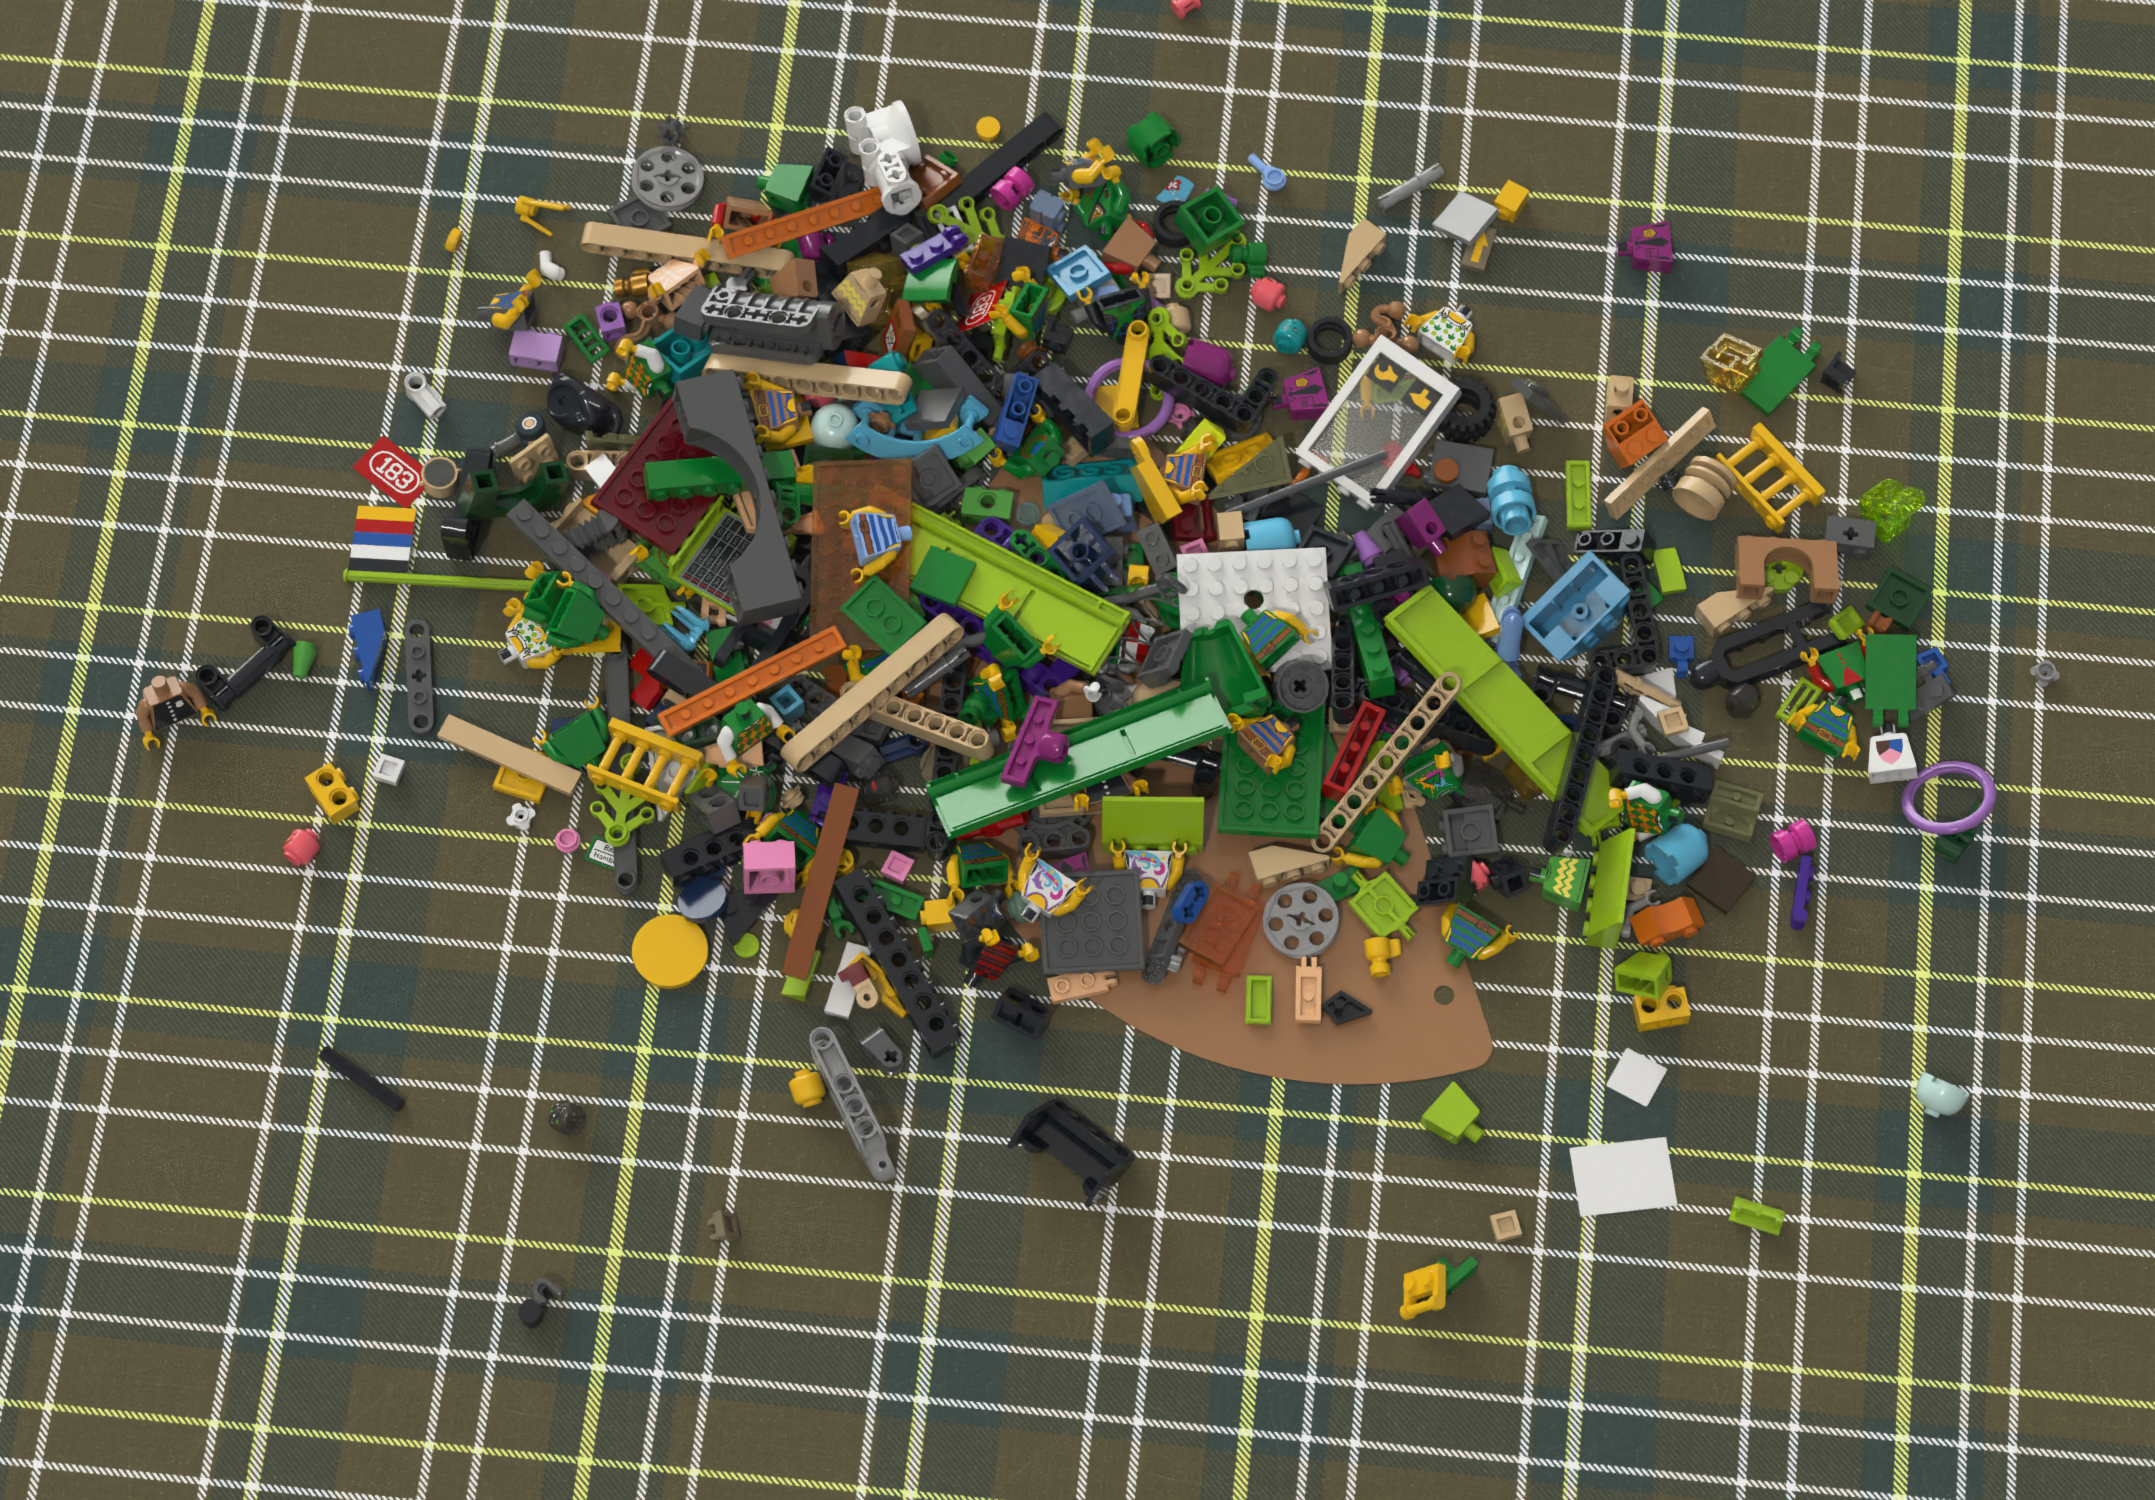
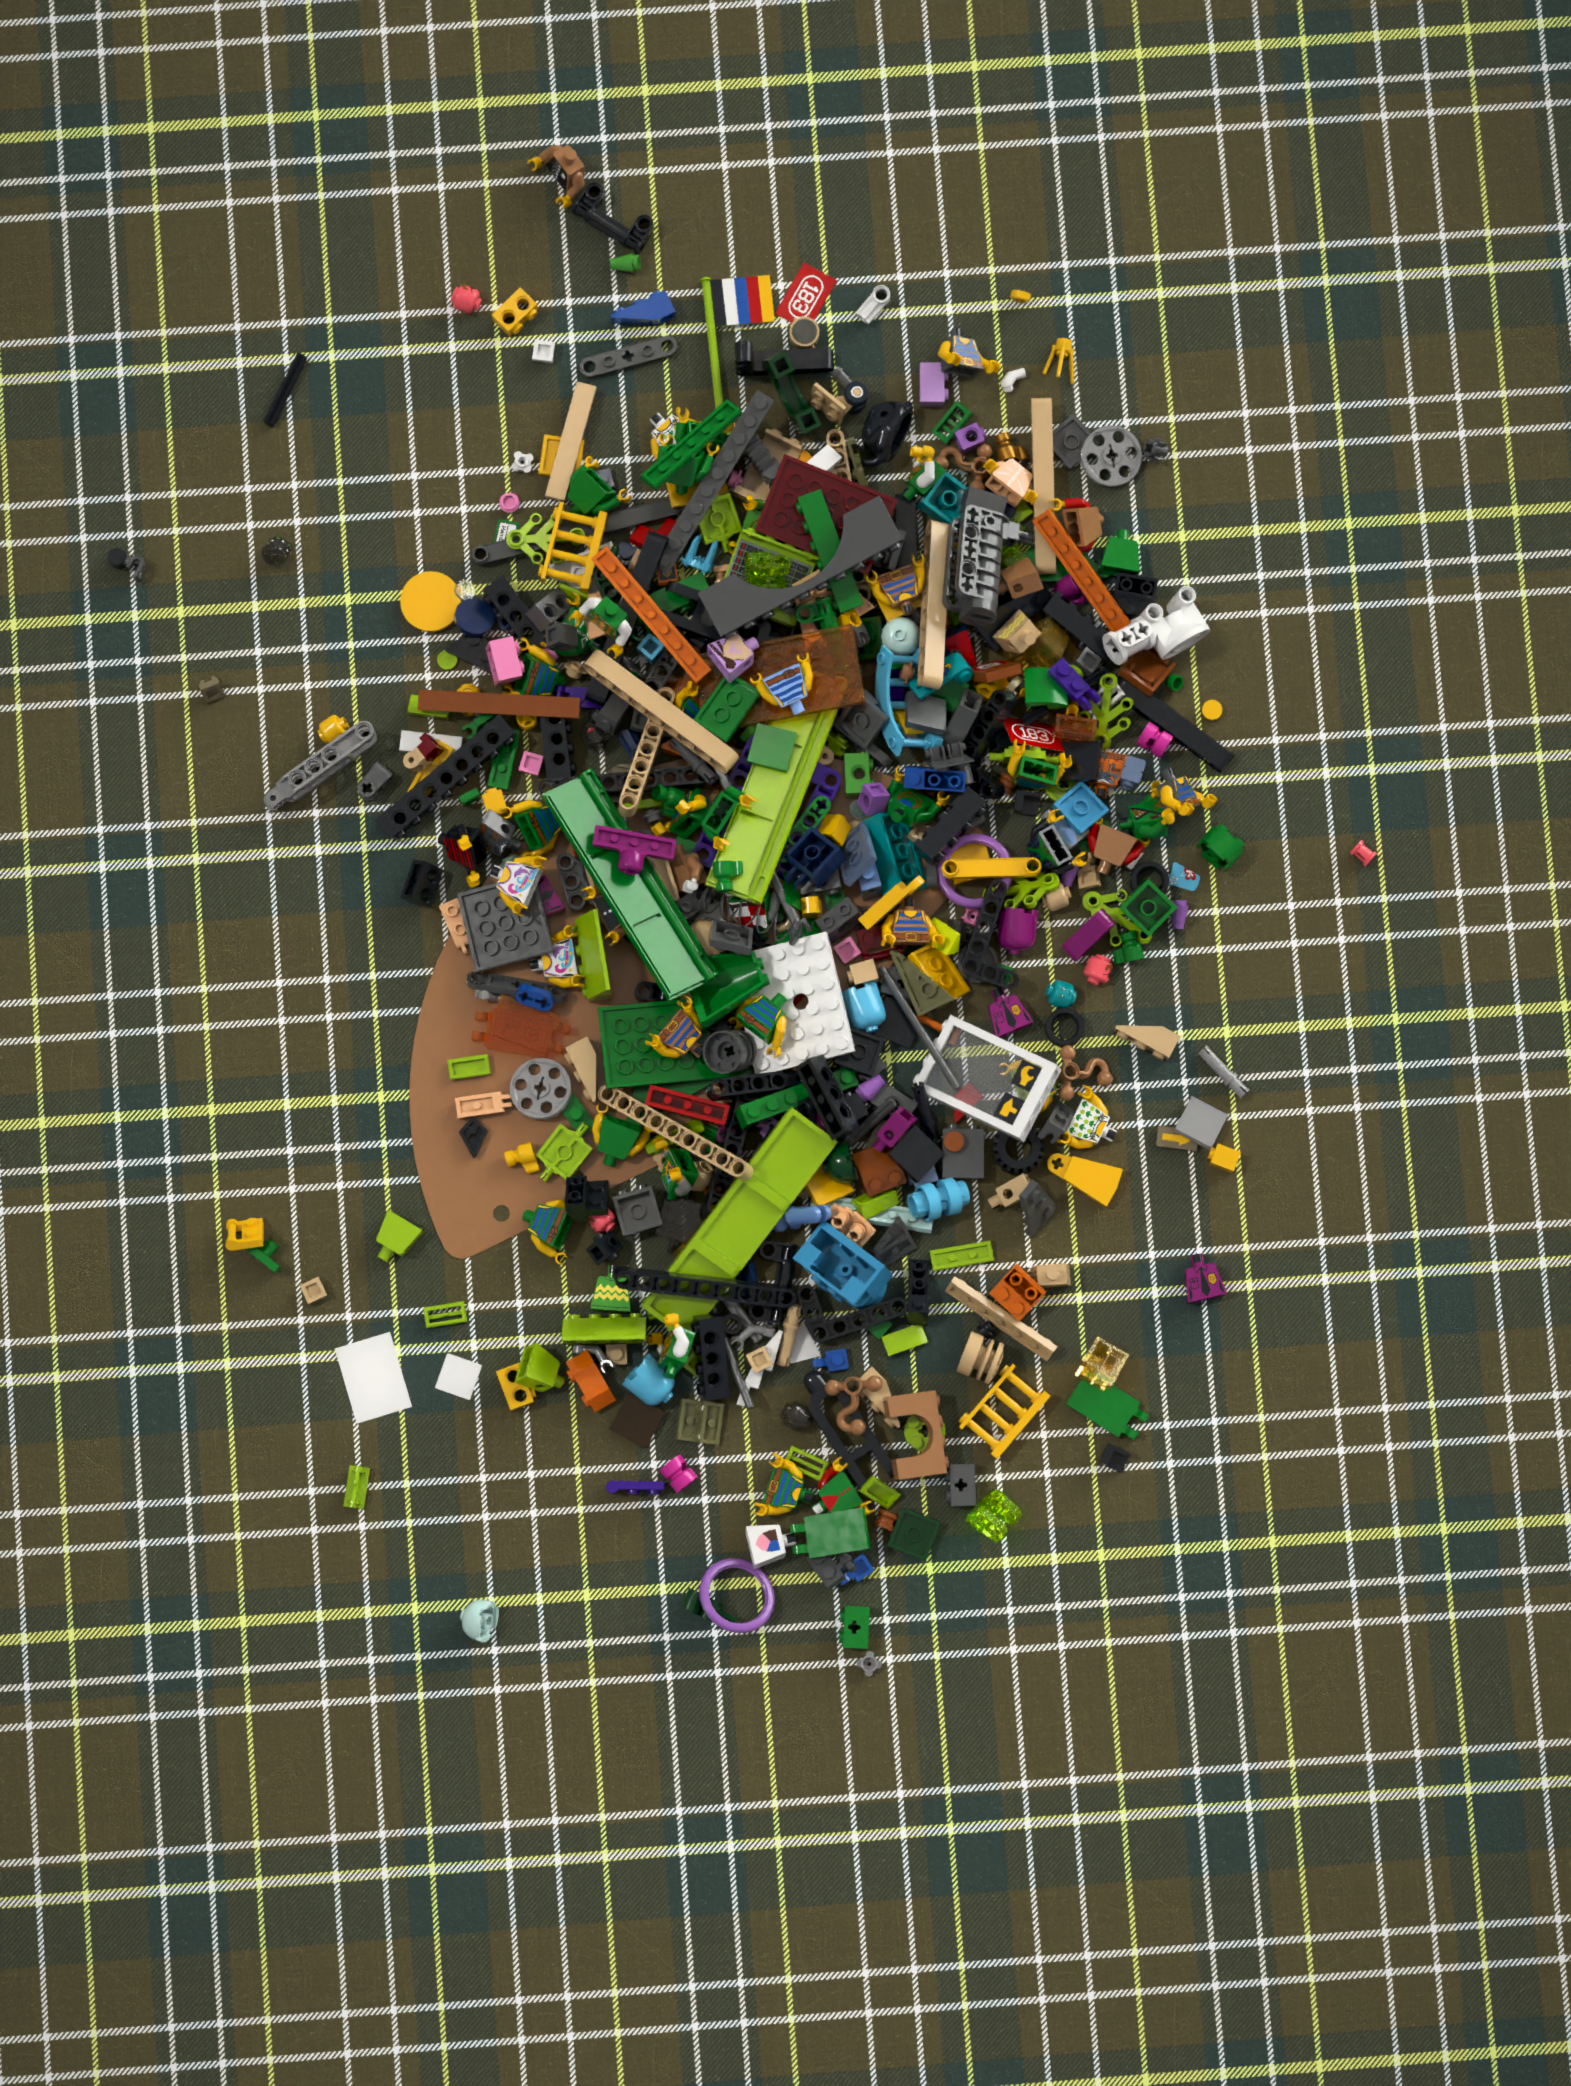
camera: 80 degrees right, 15 degrees up
(557, 596) = (691, 444): none -> green tile
(665, 908) = (464, 590): none -> clear tile
(721, 548) = (765, 569): none -> clear neon green piece
(823, 597) = (732, 655): none -> torso
(970, 458) = (906, 757): bright green brick -> none
(994, 391) = (954, 753): none -> dark grey hinge
(1020, 479) = (873, 798): none -> medium lavender brick
(1077, 1144) = (324, 948): black windscreen -> none
(1086, 646) = (724, 871): none -> green piece
(1227, 292) = (1088, 935): none -> magenta beam
(1273, 177) = (1210, 955): light blue plate -> none
(1443, 359) = (1057, 1121): none -> dark grey hinge
(1509, 344) = (1087, 1176): none -> yellow piece
(1526, 594) = (851, 1224): none -> light nougat connector
(1559, 1099) = (445, 1306): none -> lime tile
(1718, 646) = (833, 1388): none -> medium nougat piece
(2013, 676) = (861, 1616): none -> green brick

